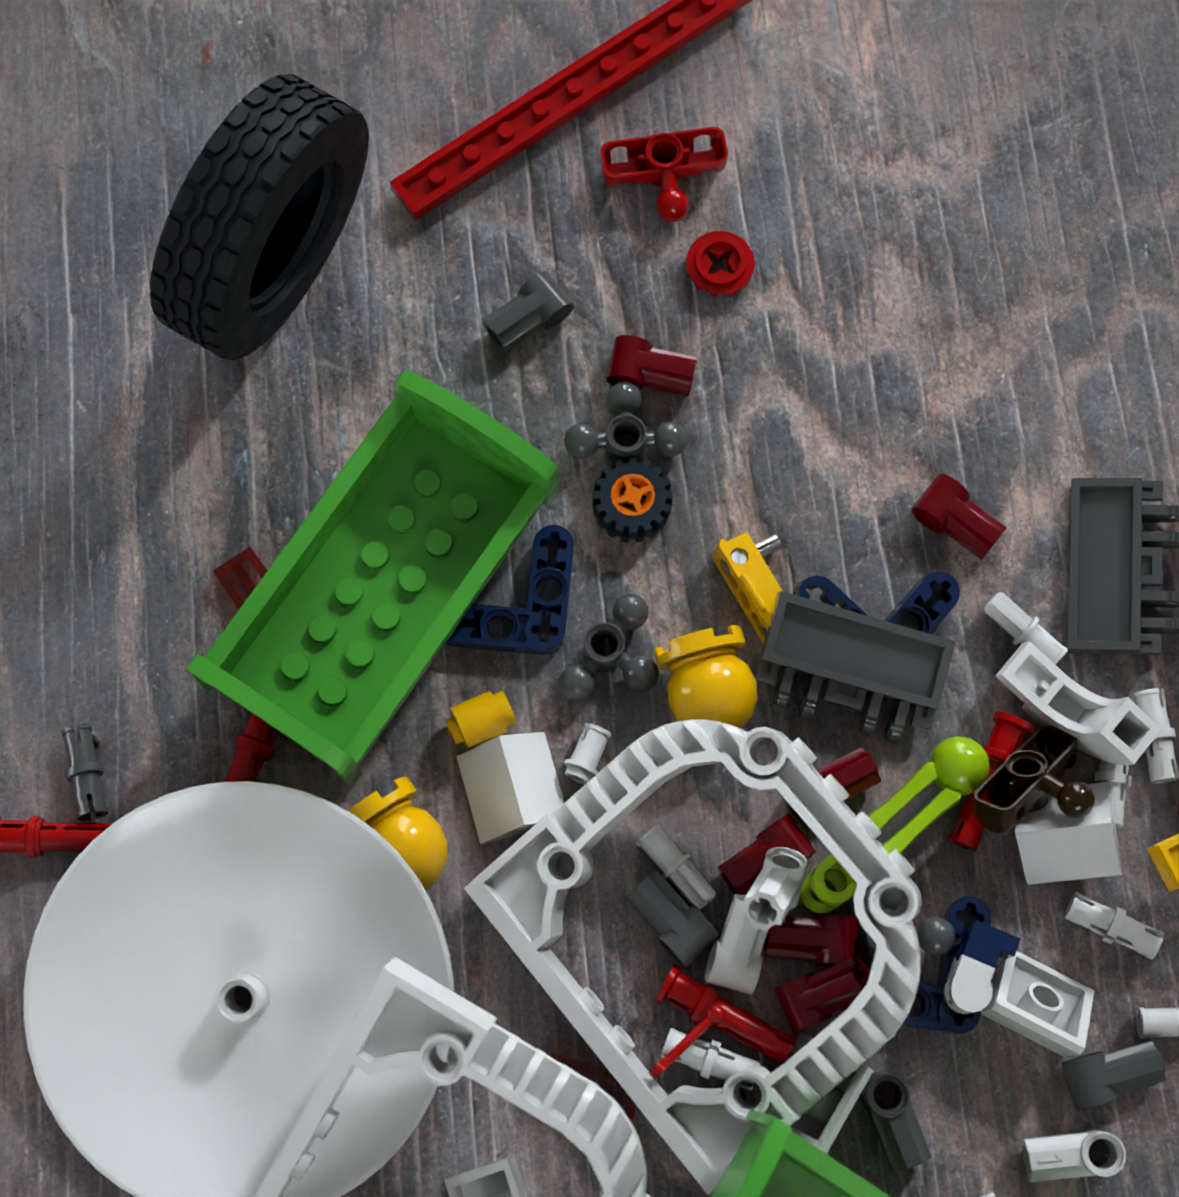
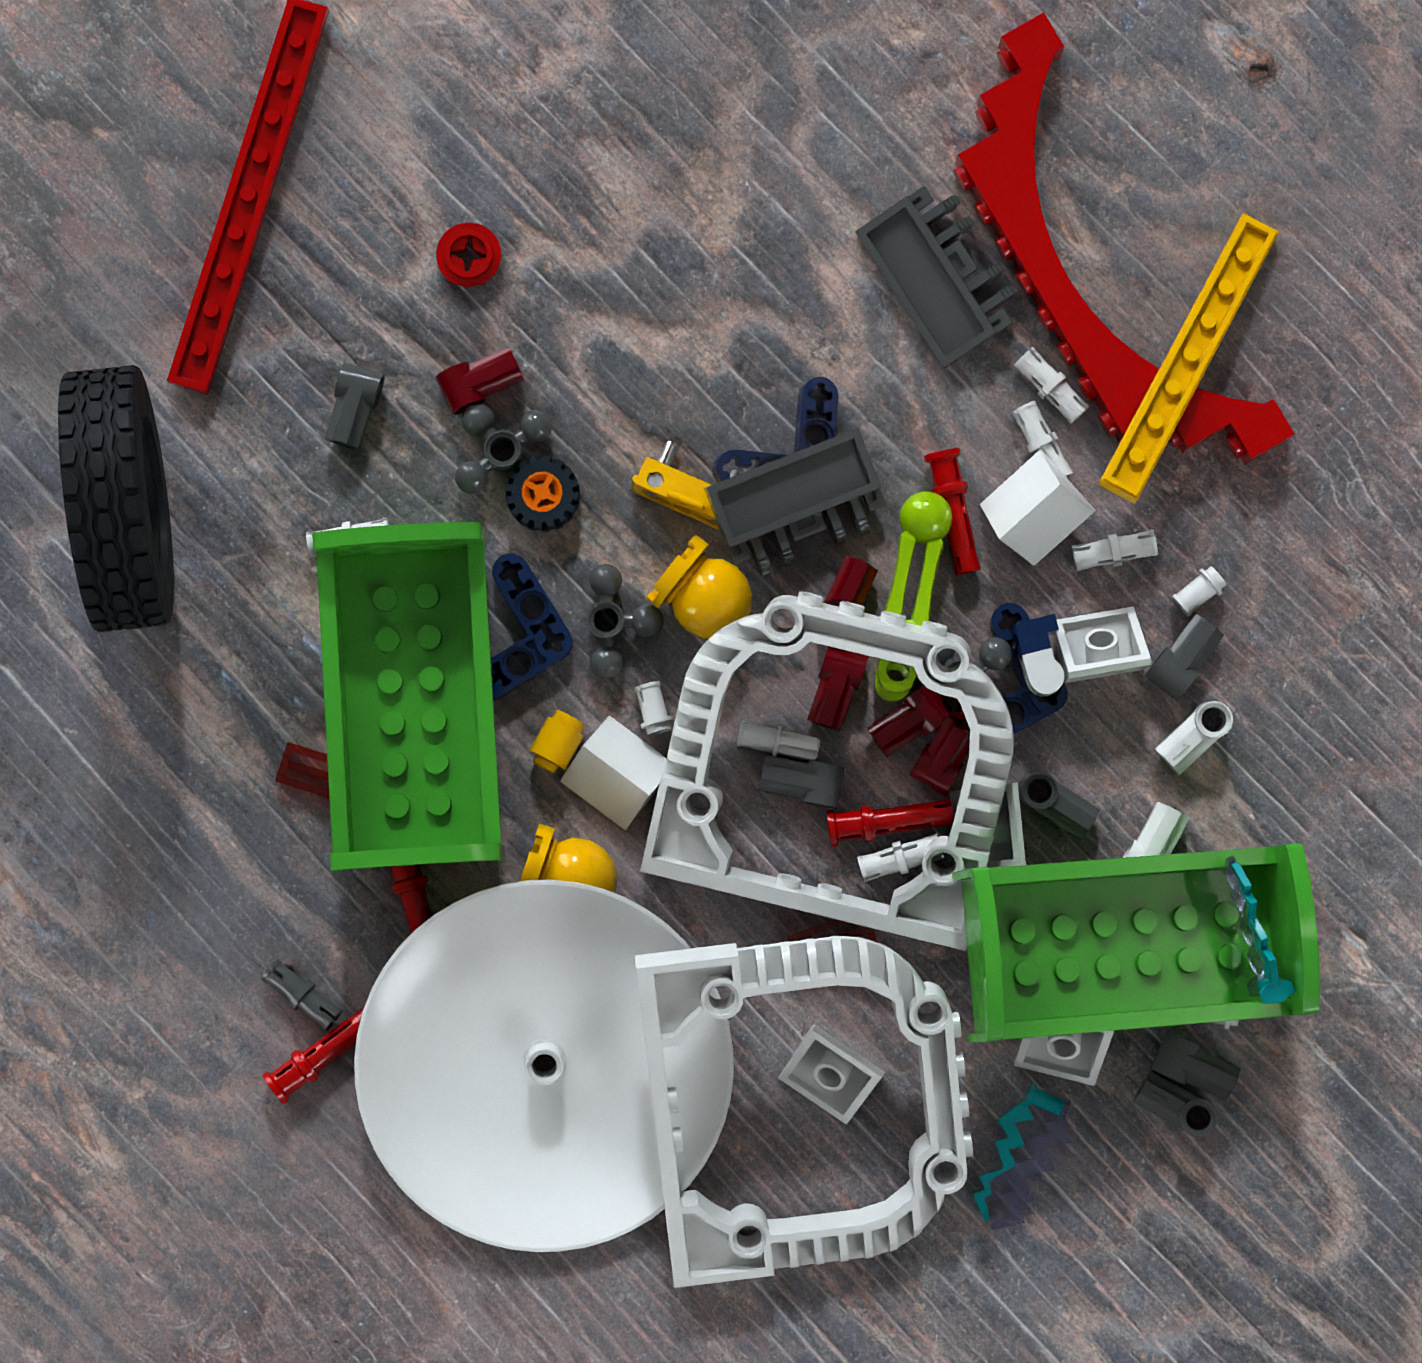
camera: 30 degrees left, 10 degrees up
(643, 168) = (349, 223): red piece -> none
(715, 1015) = (881, 825): red hinge -> none
(737, 957) = (867, 773): white piece -> none
(775, 888) = (859, 707): white piece -> none
(948, 509) = (781, 325): dark red piece -> none
(1023, 627) = (902, 376): white axle -> none
(1029, 778) = (983, 492): dark brown piece -> none
(1103, 726) = (978, 415): white arch -> none

